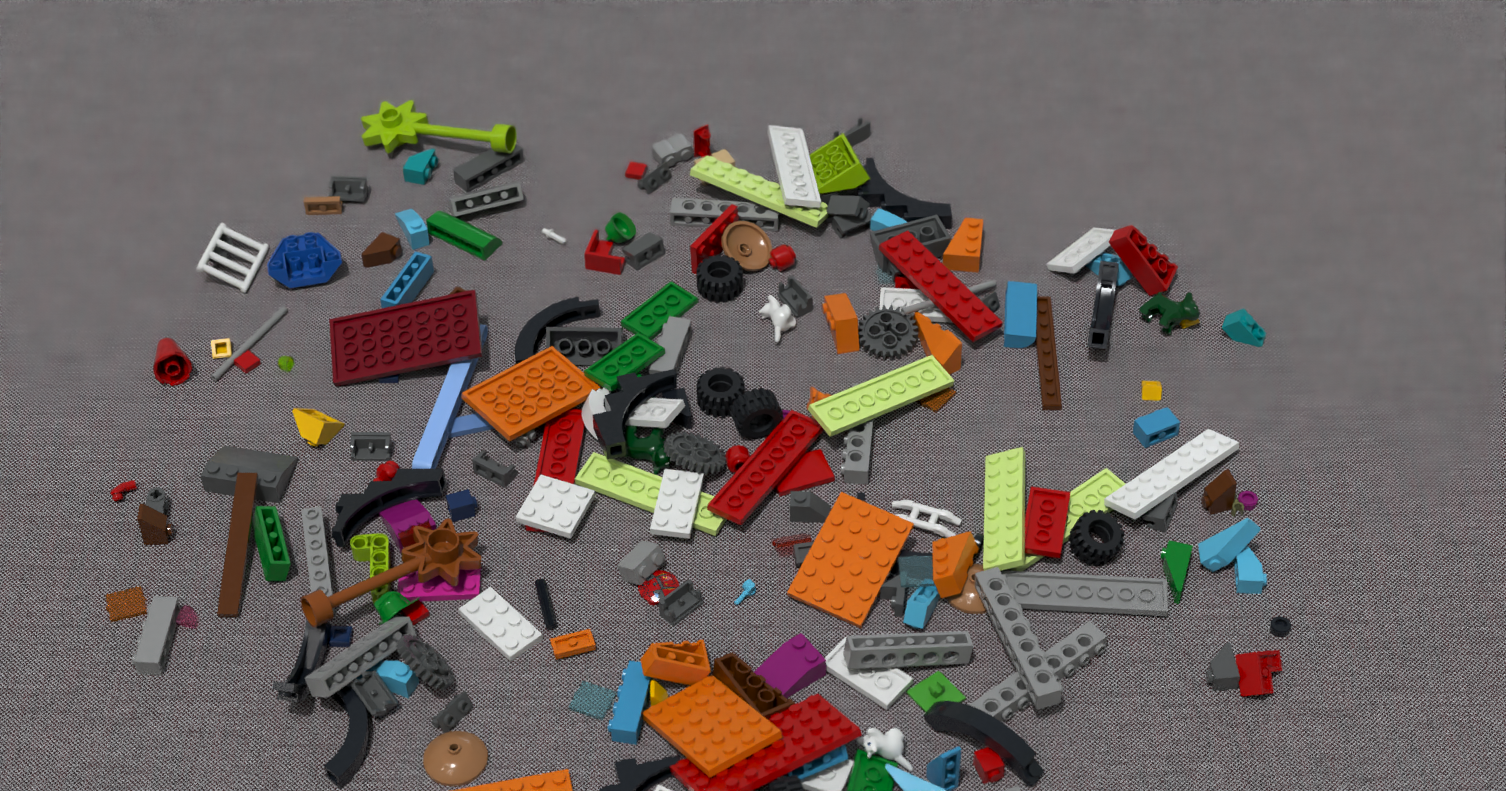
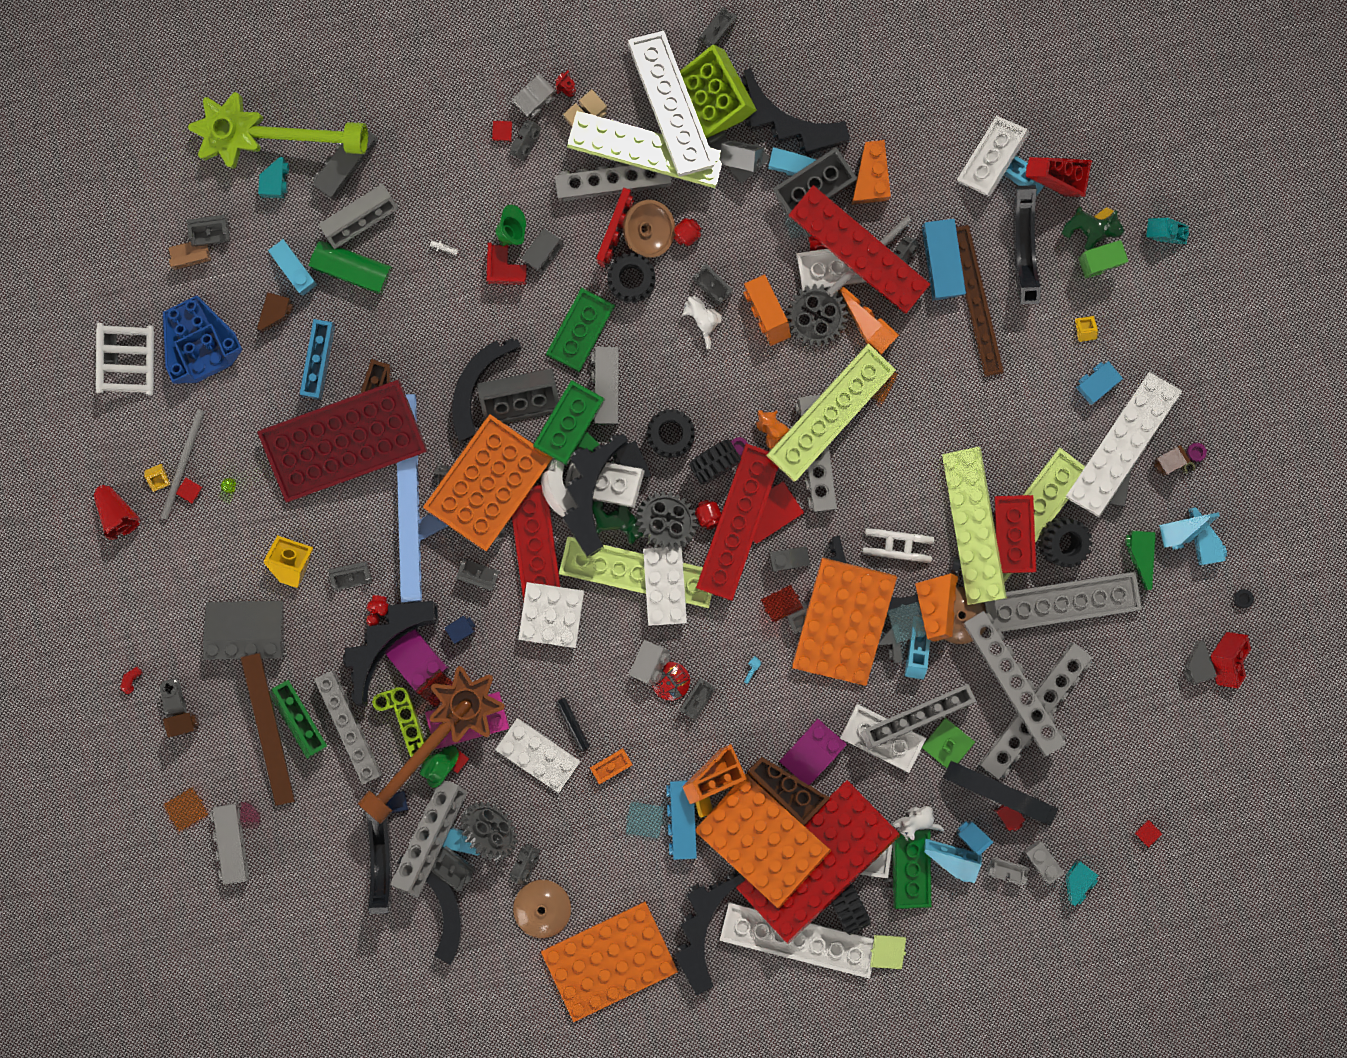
camera: 15 degrees left, 40 degrees up
(1174, 328) = (1102, 259): none -> bright green panel

